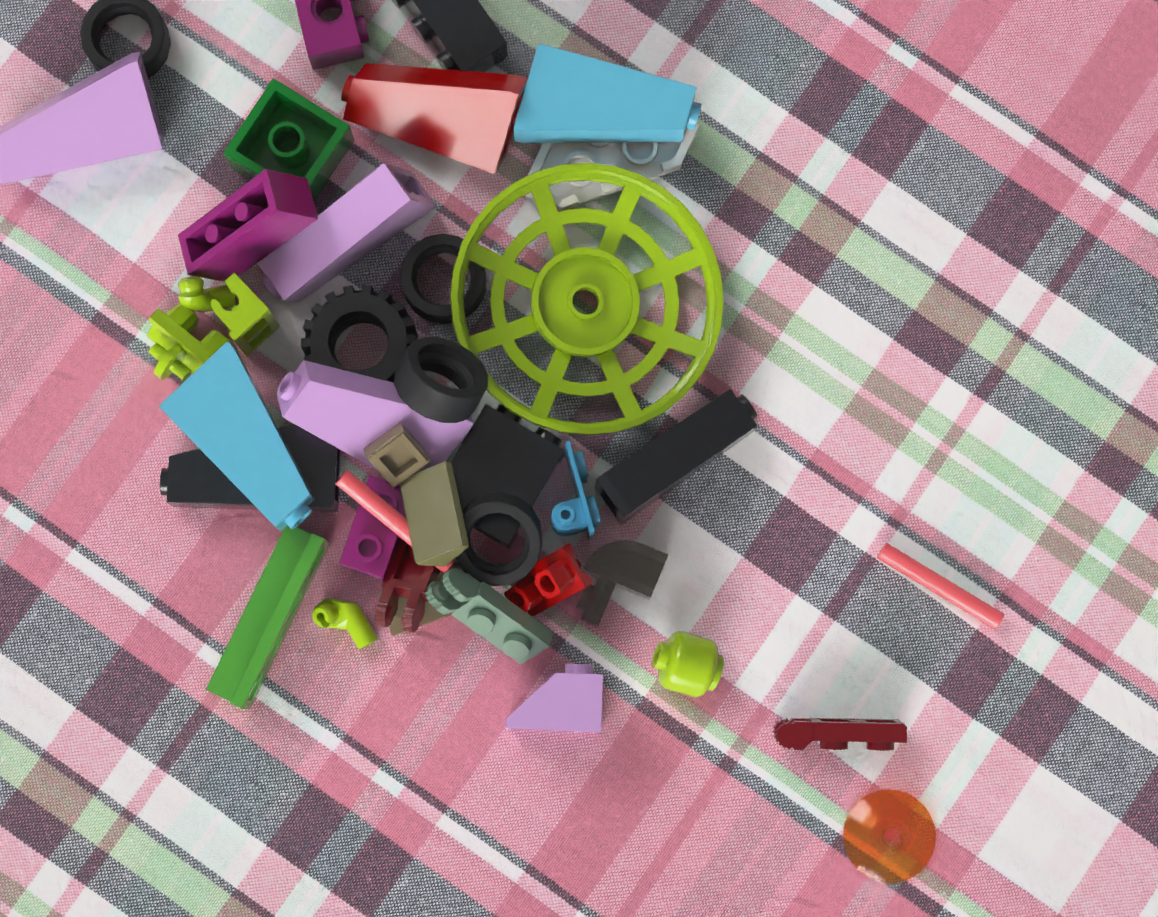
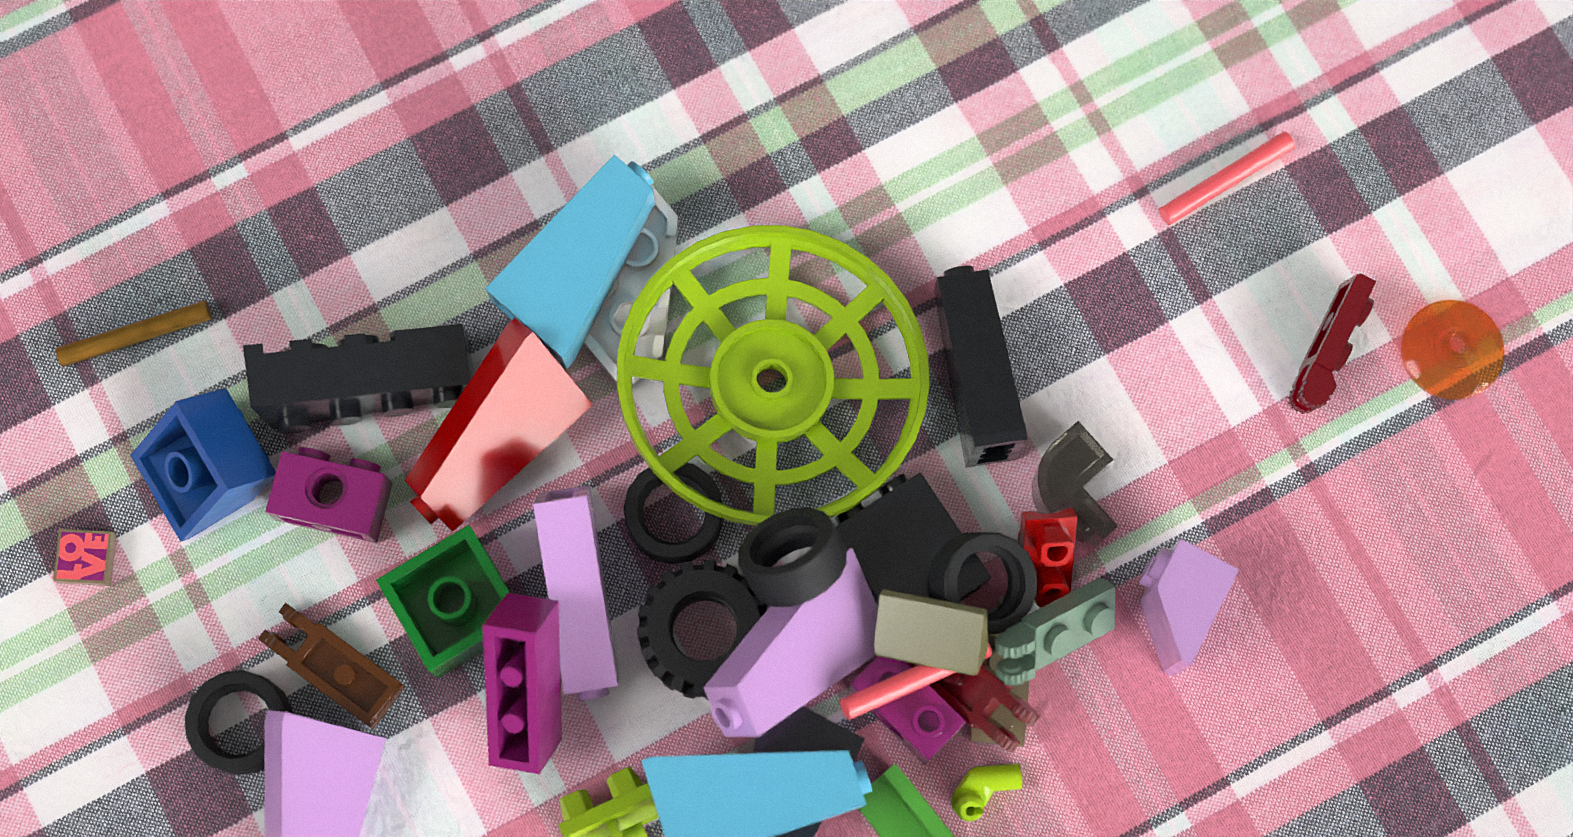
camera: 60 degrees left, 5 degrees down
(199, 299) = (568, 773): lime arm -> none
(200, 87) = (336, 669): none -> reddish brown hinge
(249, 321) = (616, 731): lime hinge -> none
(397, 455) = (848, 641): dark tan tile -> none
(579, 513) = (994, 484): dark azure hinge -> none
(688, 664) = (1194, 458): lime head -> none

